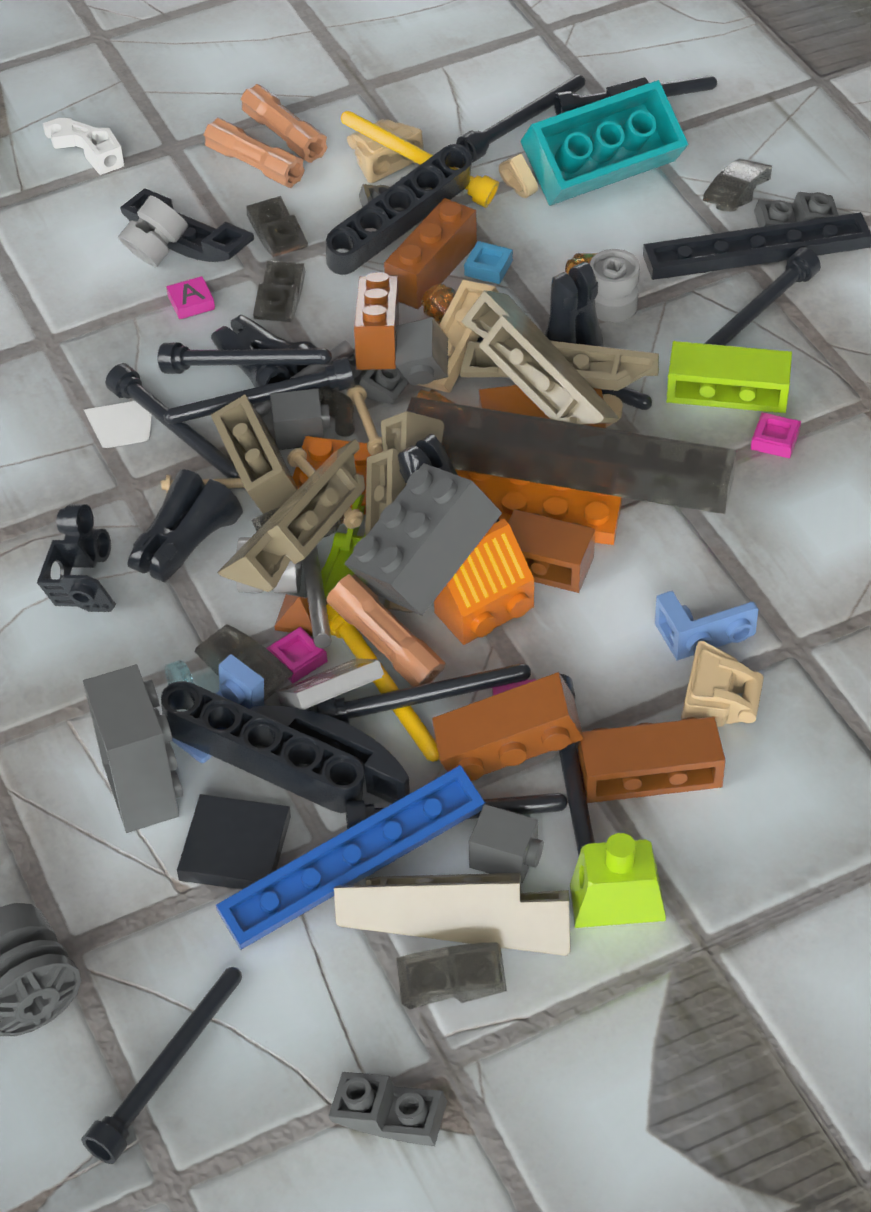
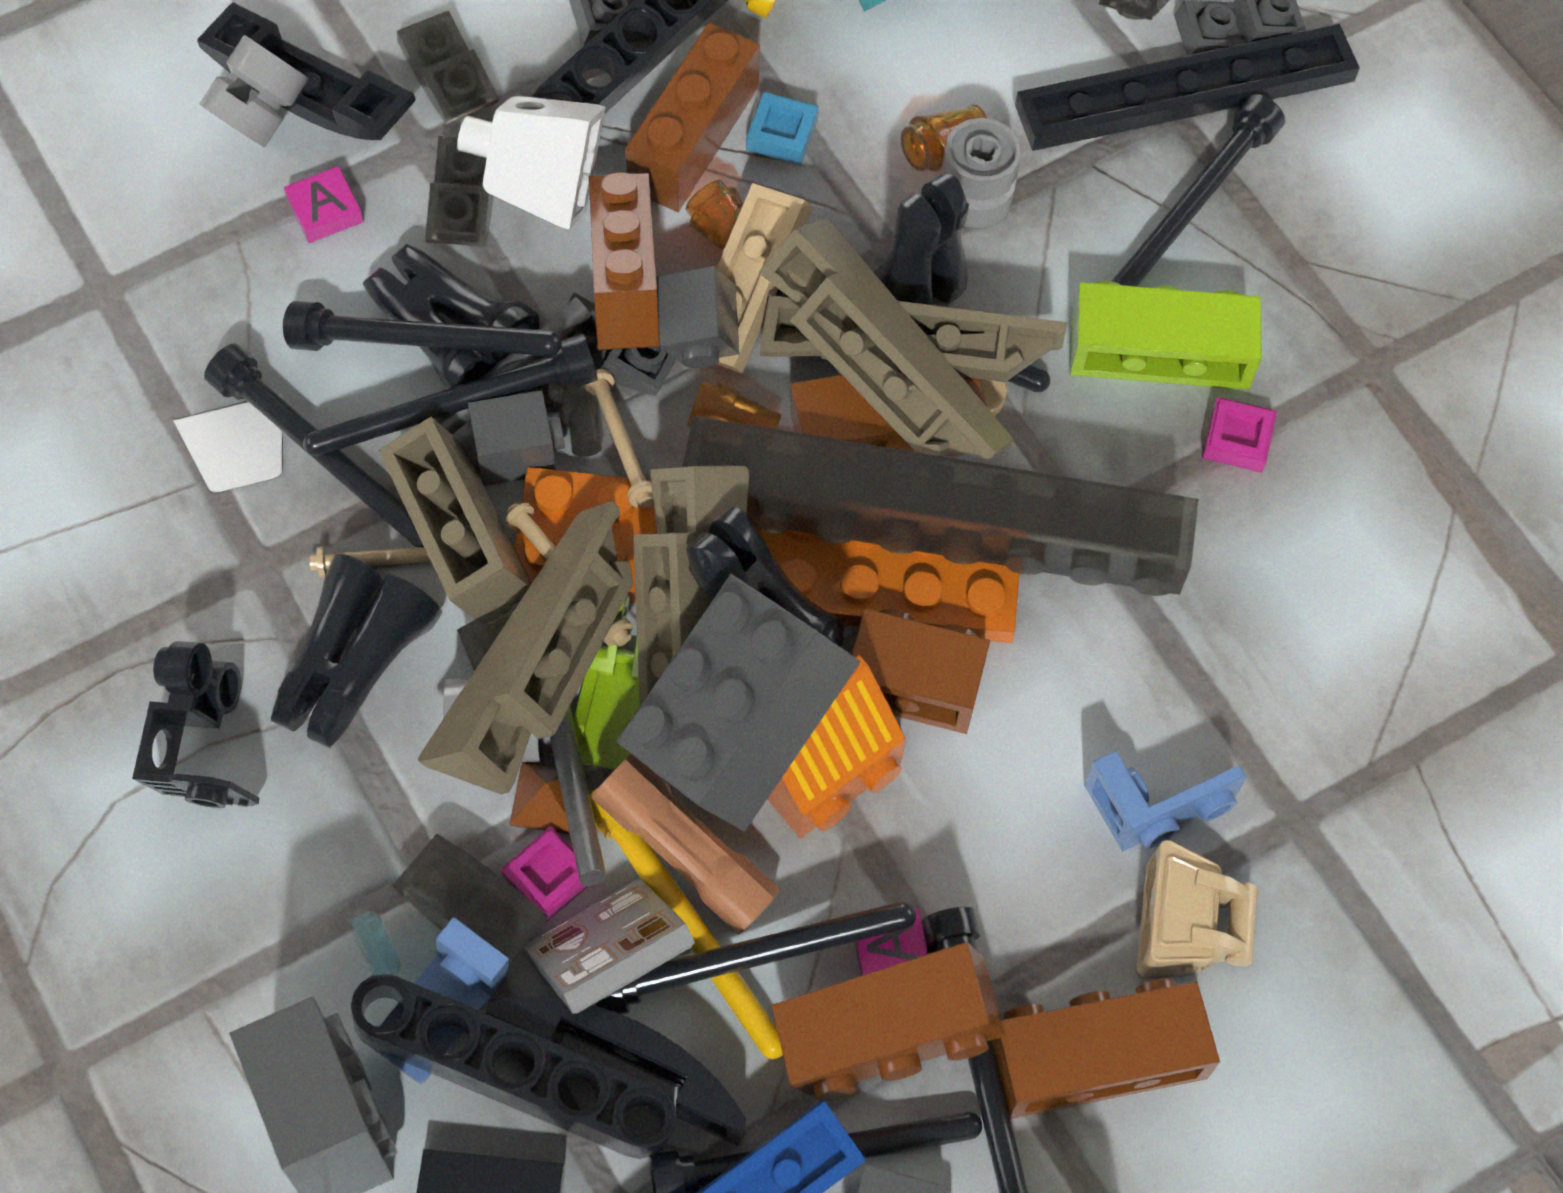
camera: 10 degrees left, 15 degrees up
(328, 265) = (538, 154): none -> white torso

